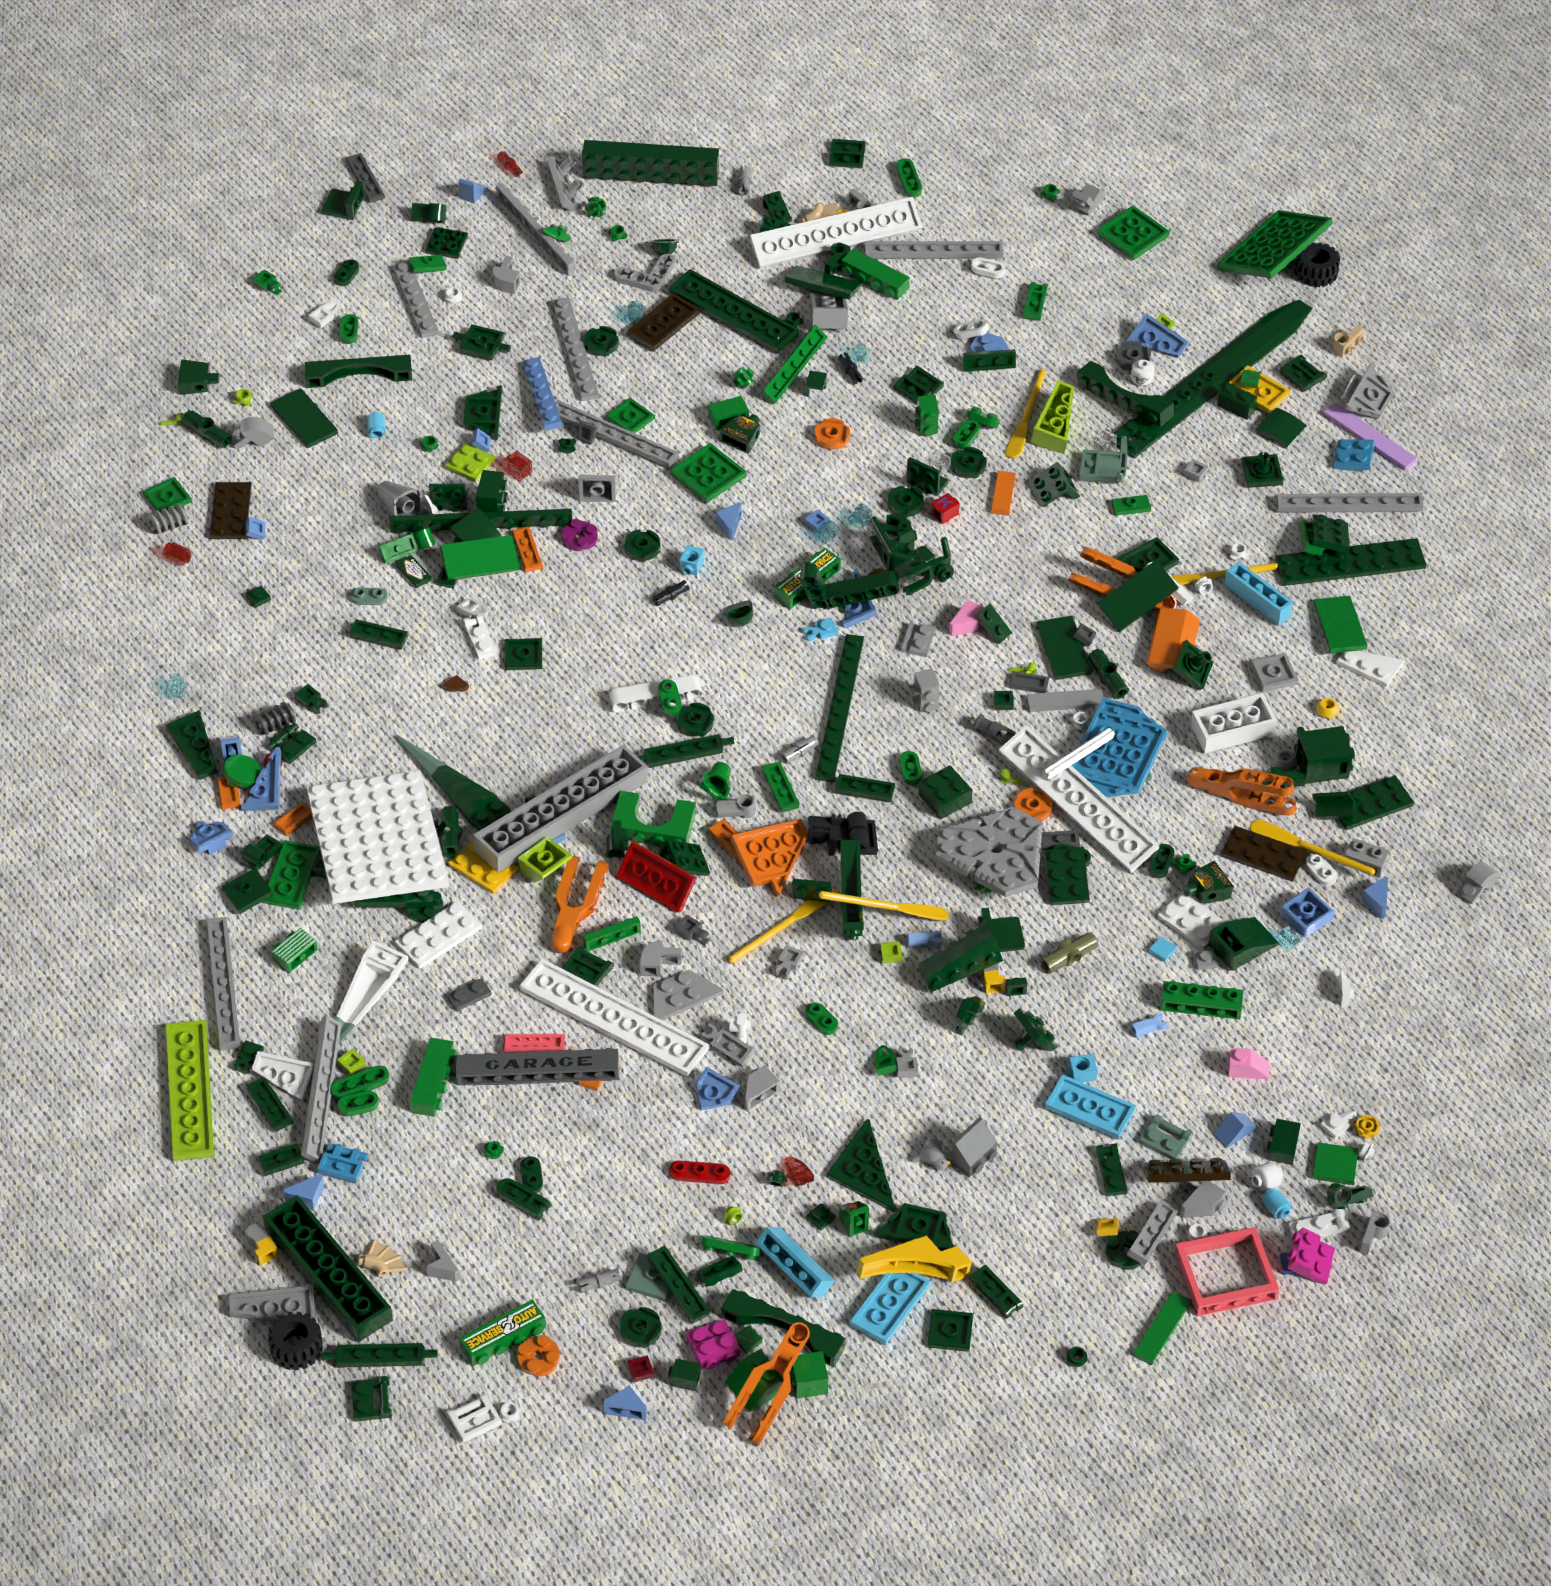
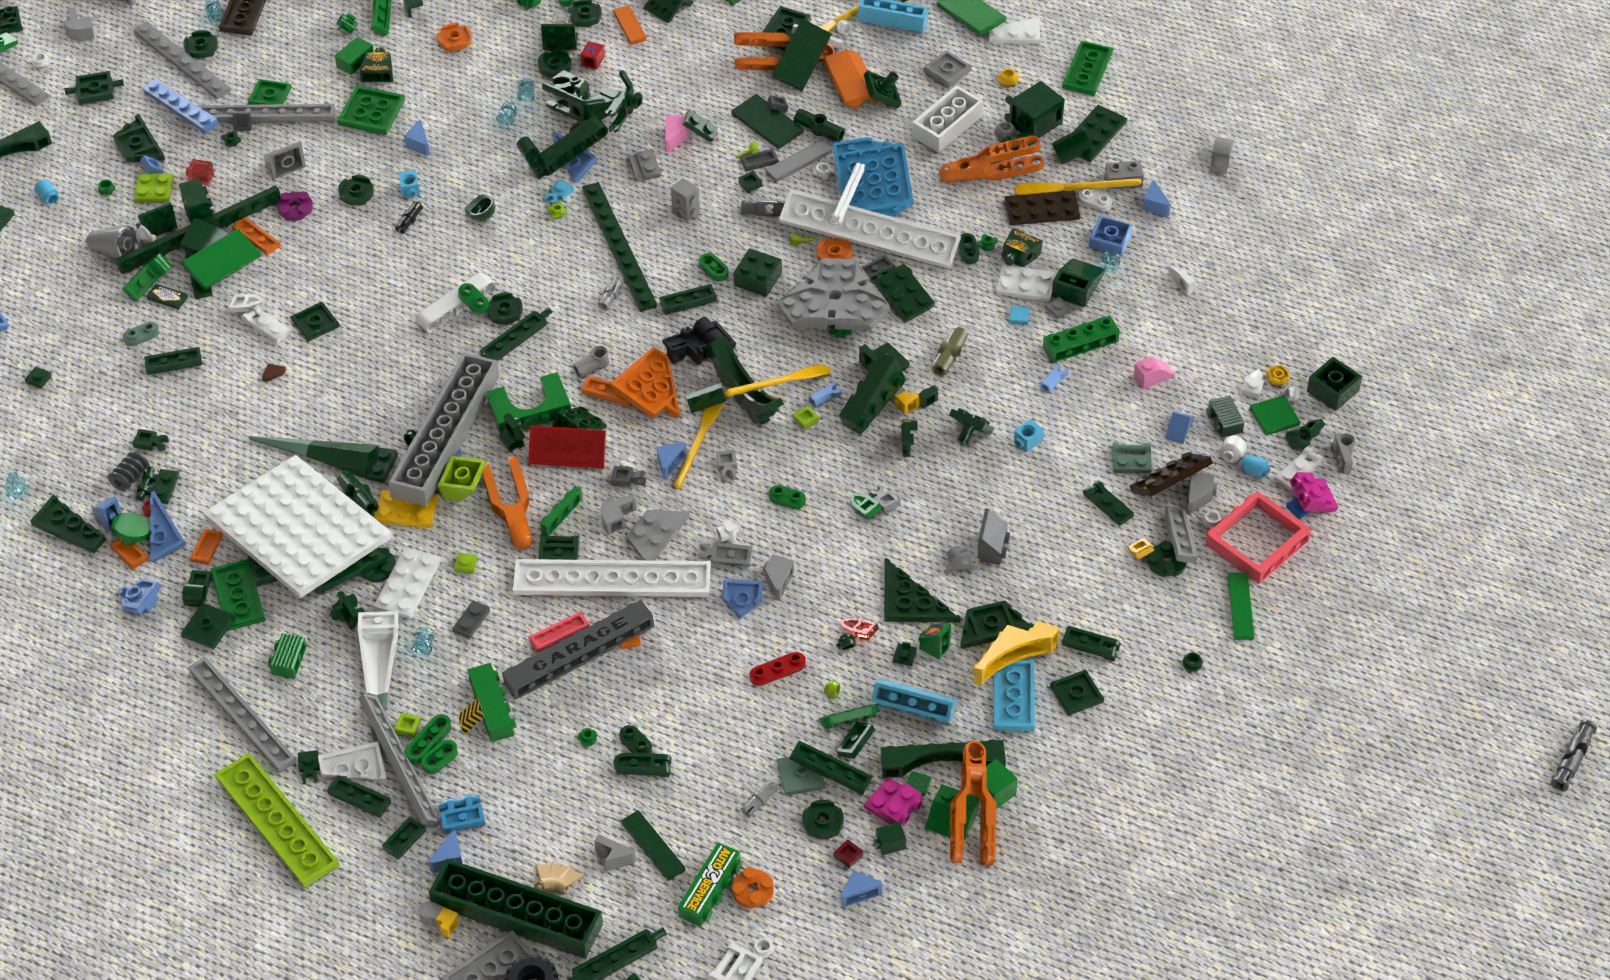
camera: 30 degrees left, 0 degrees up
(372, 927) = (345, 611): none -> dark green hips
(407, 1081) = (470, 716): none -> sticker
(414, 993) = (423, 642): none -> clear light blue wheel
(482, 1274) = (653, 845): none -> dark green tile
(499, 941) = (465, 563): none -> lime plate
(716, 781) = (561, 347): green piece -> none
(741, 931) = (670, 457): none -> medium blue slope
(780, 787) = (616, 329): green plate -> none
(790, 590) = (513, 164): green brick -> none
(807, 650) = (557, 210): none -> lime plate
(816, 519) = (491, 109): medium blue plate -> none
(1090, 1107) = (1056, 462): medium azure plate -> none
(1412, 1161) = (1334, 383): none -> dark green brick
(1414, 733) = (1087, 68): none -> green tile

